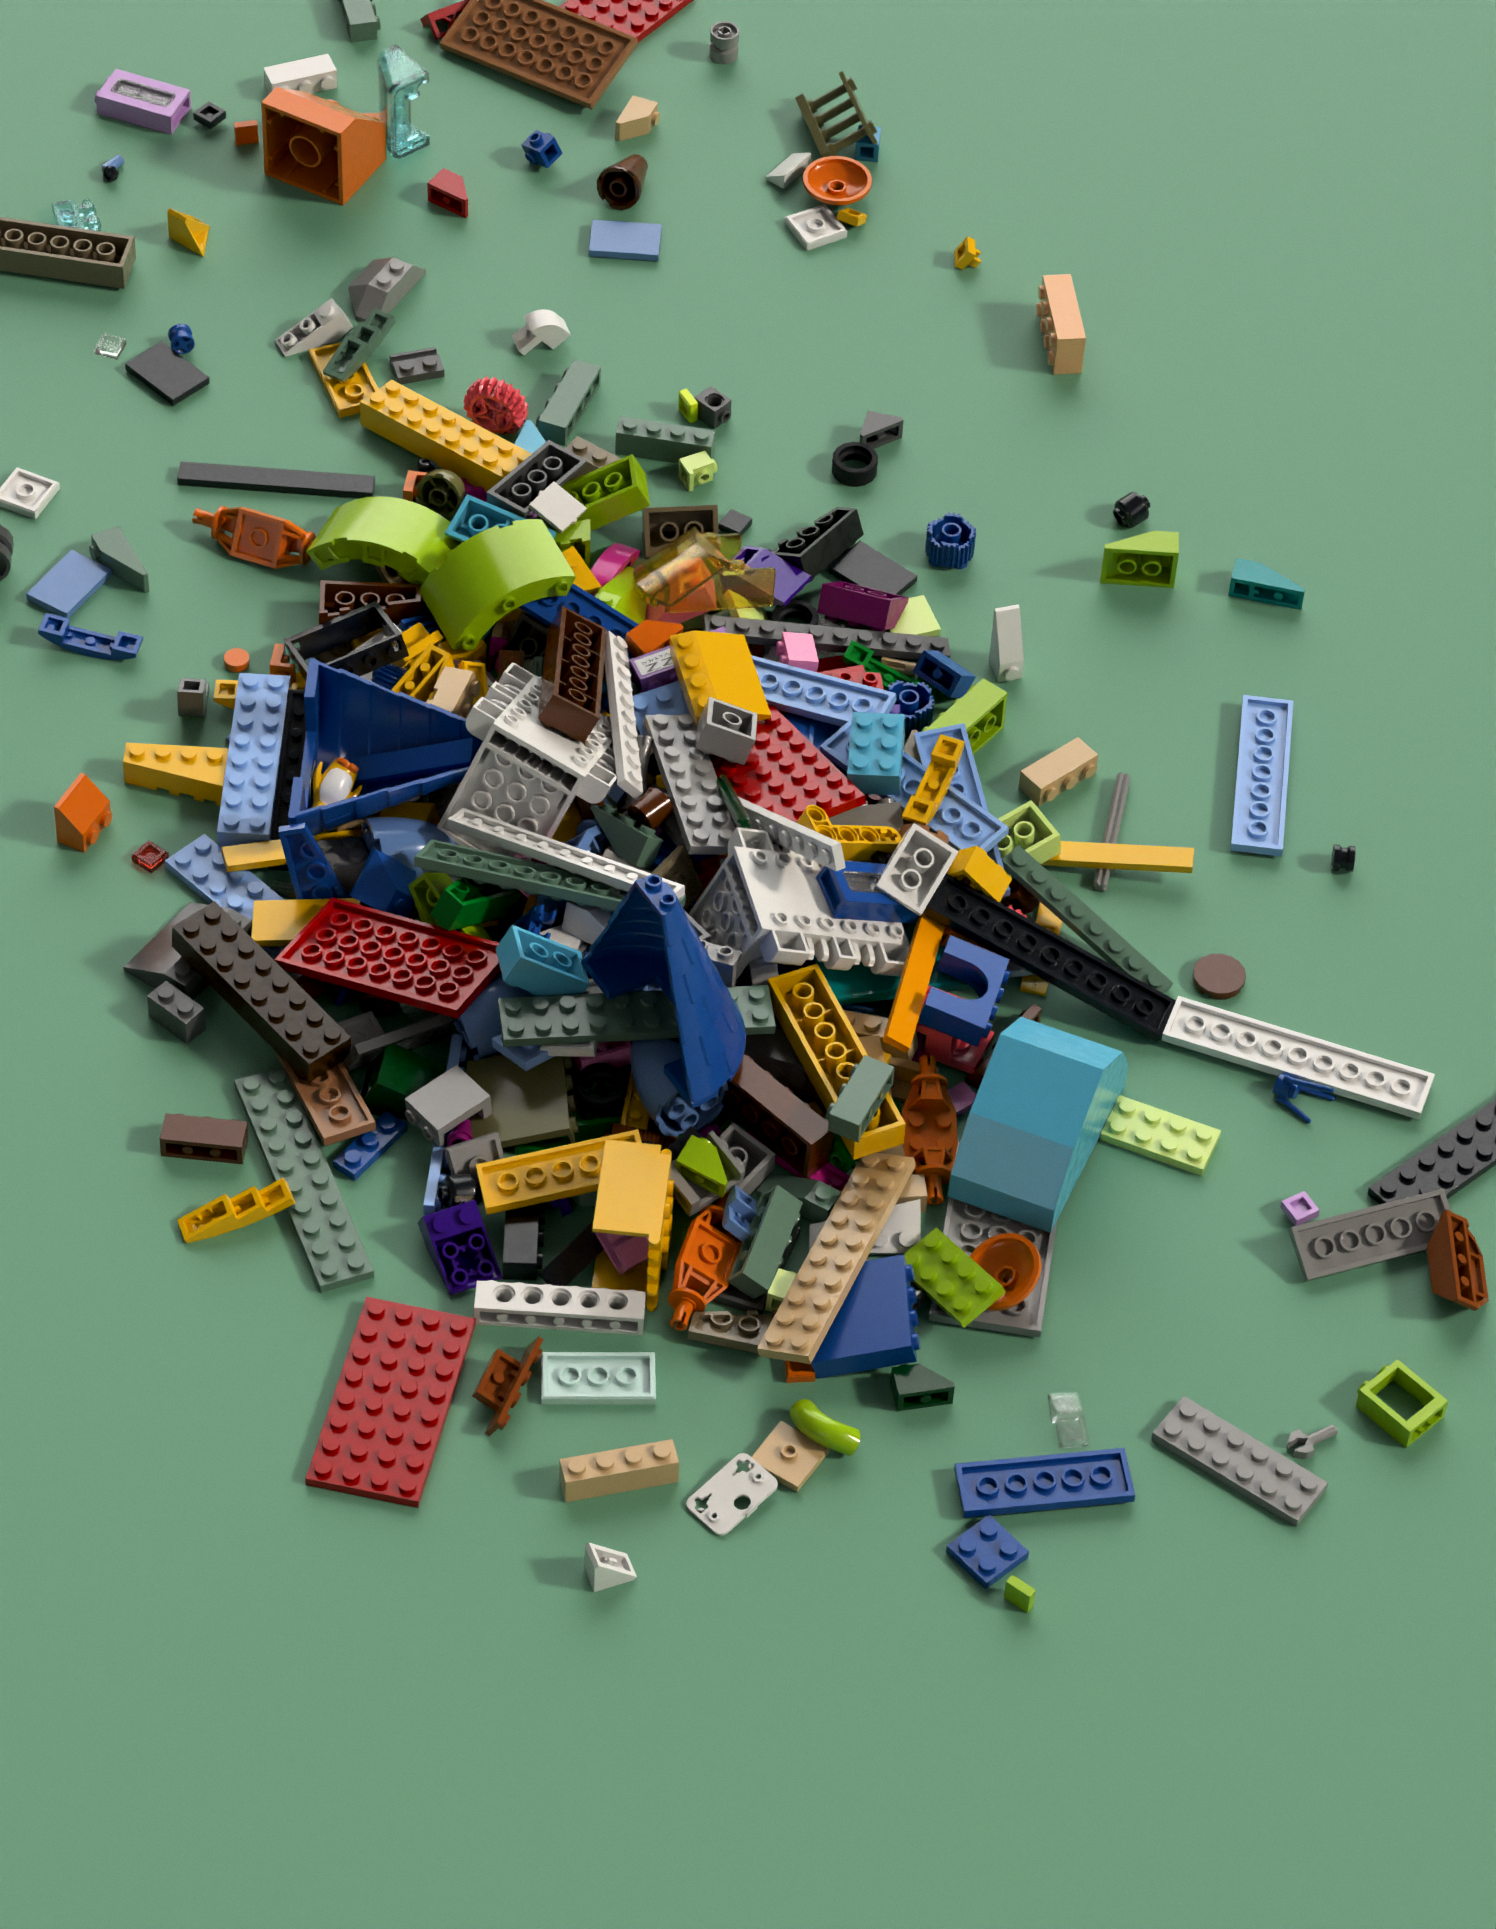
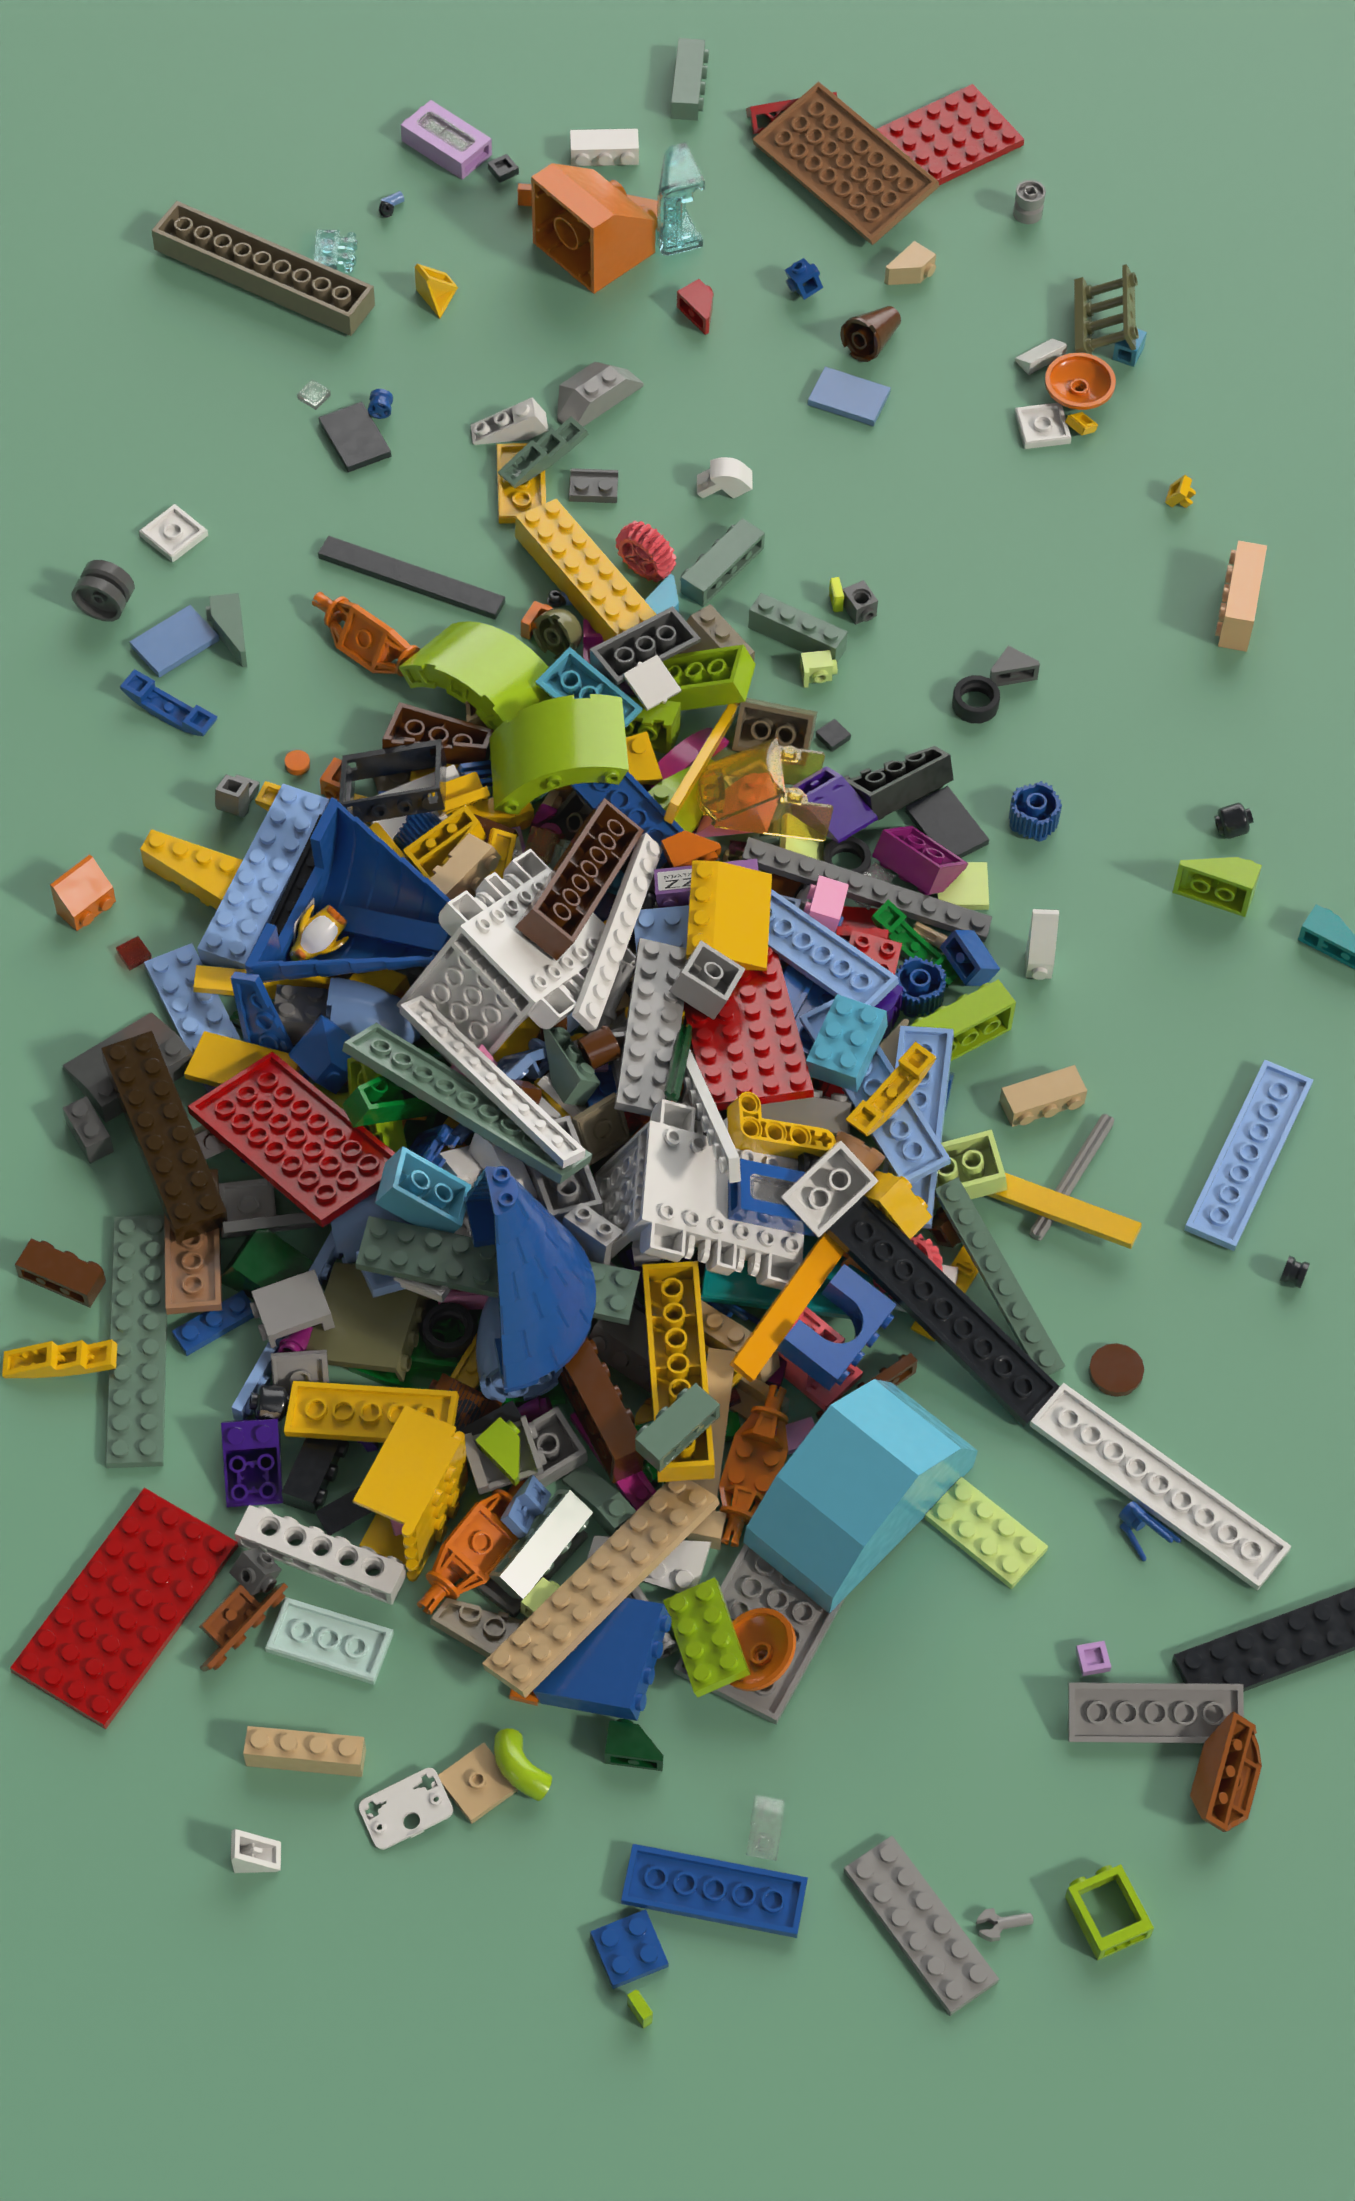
camera: 20 degrees right, 10 degrees up
(507, 1334) = (256, 1571): none -> dark grey brick
(630, 563) = (701, 762): none -> yellow tile

